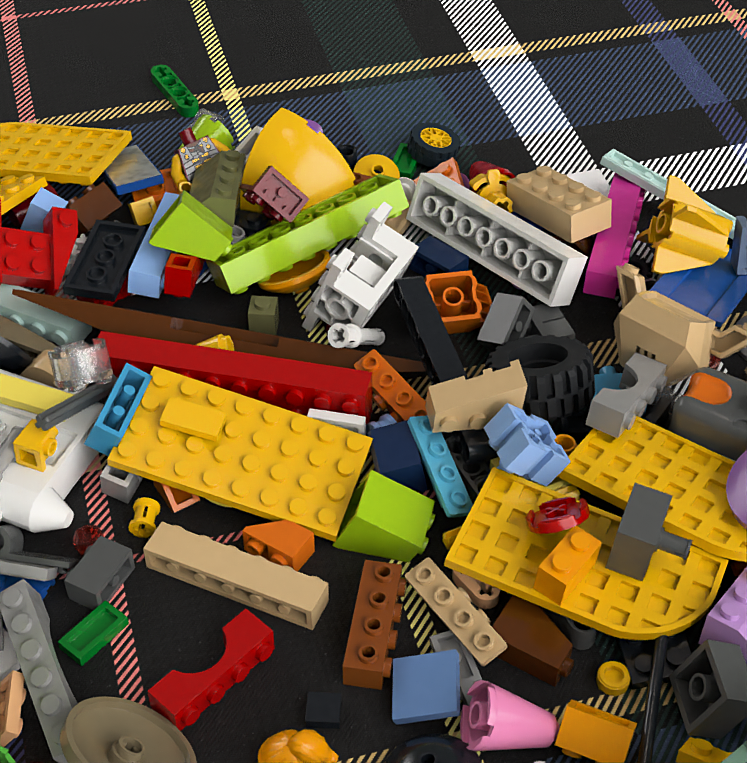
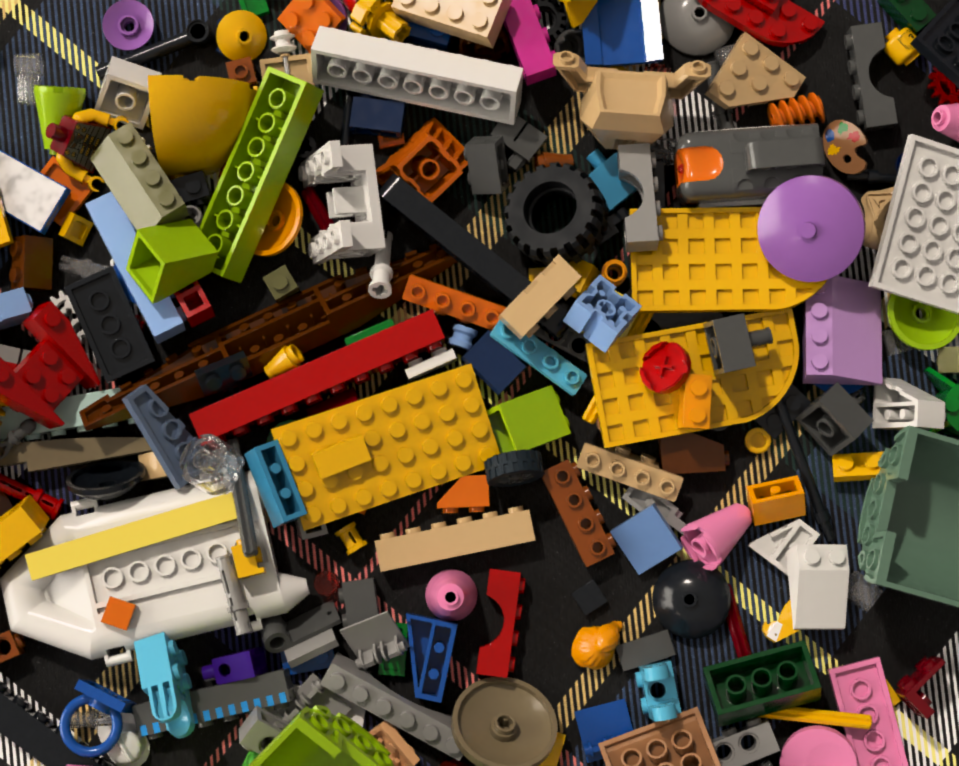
camera: 35 degrees left, 40 degrees up
(67, 320) = (161, 430): none -> sand blue wing
(82, 596) = (375, 639): none -> light grey hinge
(122, 649) = (430, 651): none -> blue wedge
(156, 323) = (224, 375): none -> black hinge
(188, 613) = (451, 581): none -> bright pink cone
(275, 195) = (211, 174): bracket -> none
(342, 533) = (514, 468): none -> black wheel

